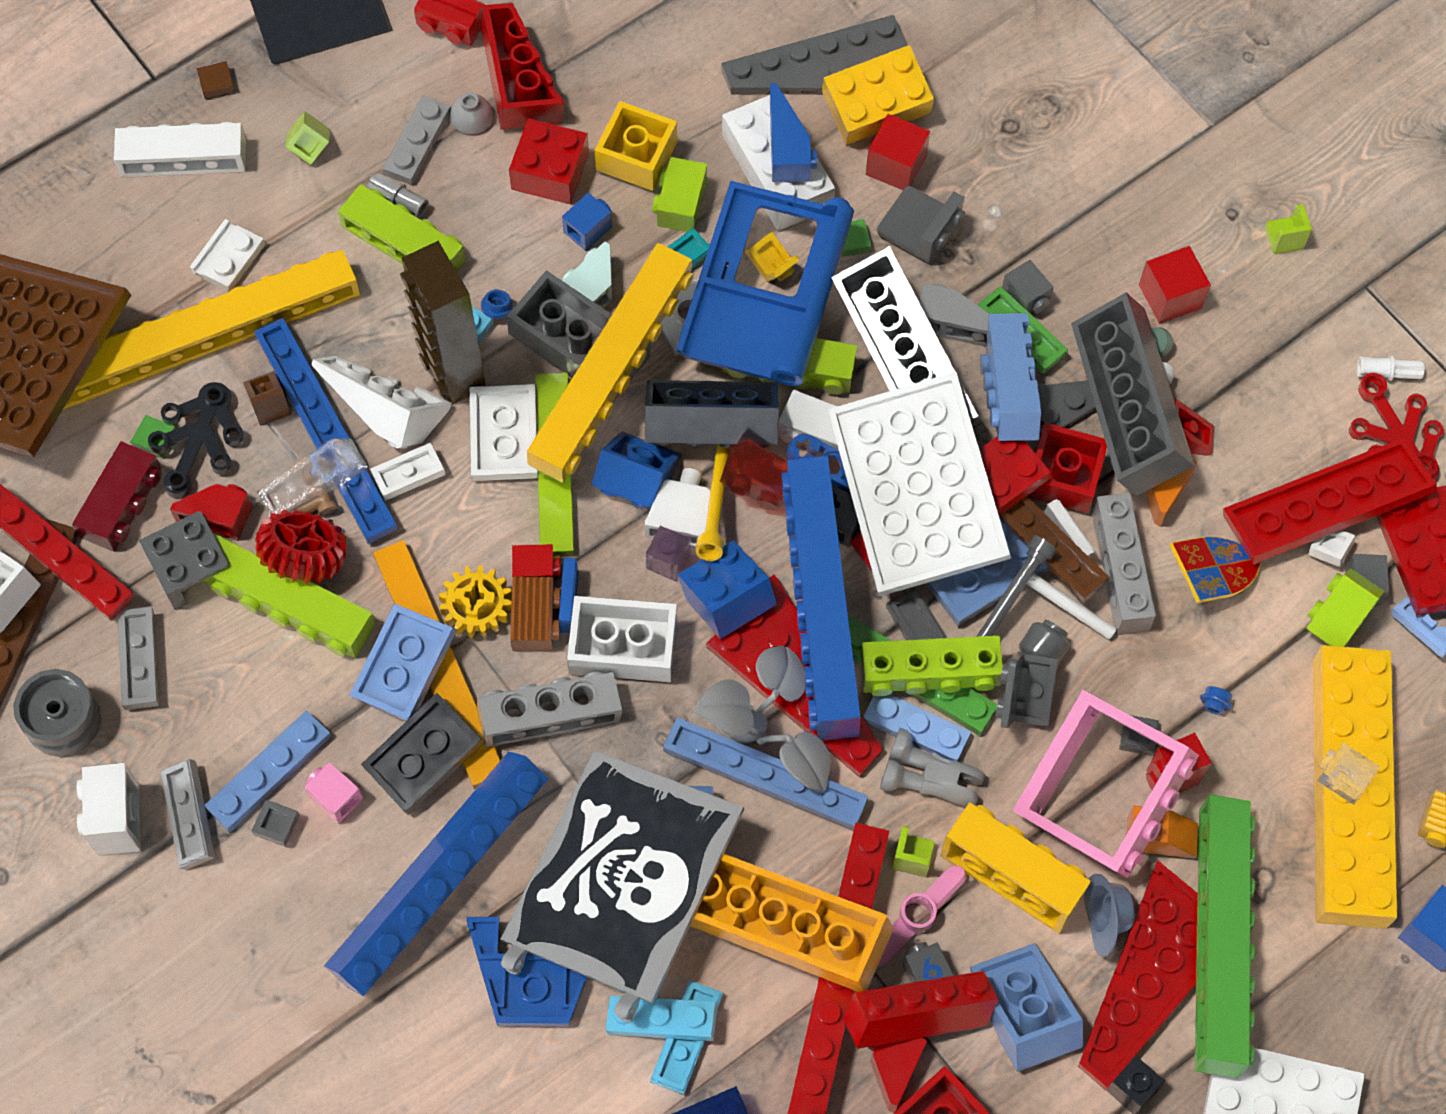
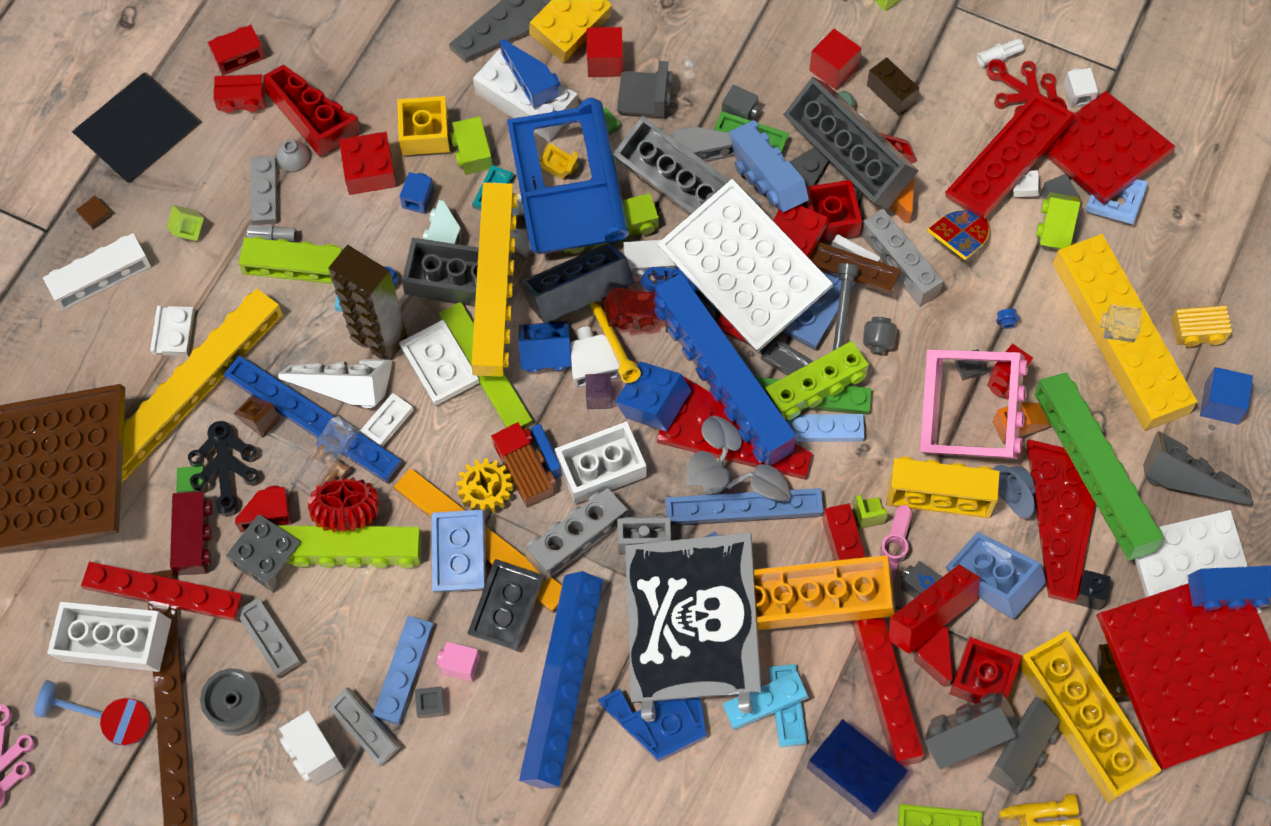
camera: 25 degrees left, 0 degrees up
(626, 744) = (642, 530): none -> light grey brick
(938, 776) = (858, 454): light grey piece -> none
(1029, 689) = (889, 367): dark grey bracket -> none
(1071, 606) = (884, 301): white bar -> none
(1228, 350) = (892, 86): none -> dark brown brick
(1328, 989) = (1176, 469): none -> dark grey wedge

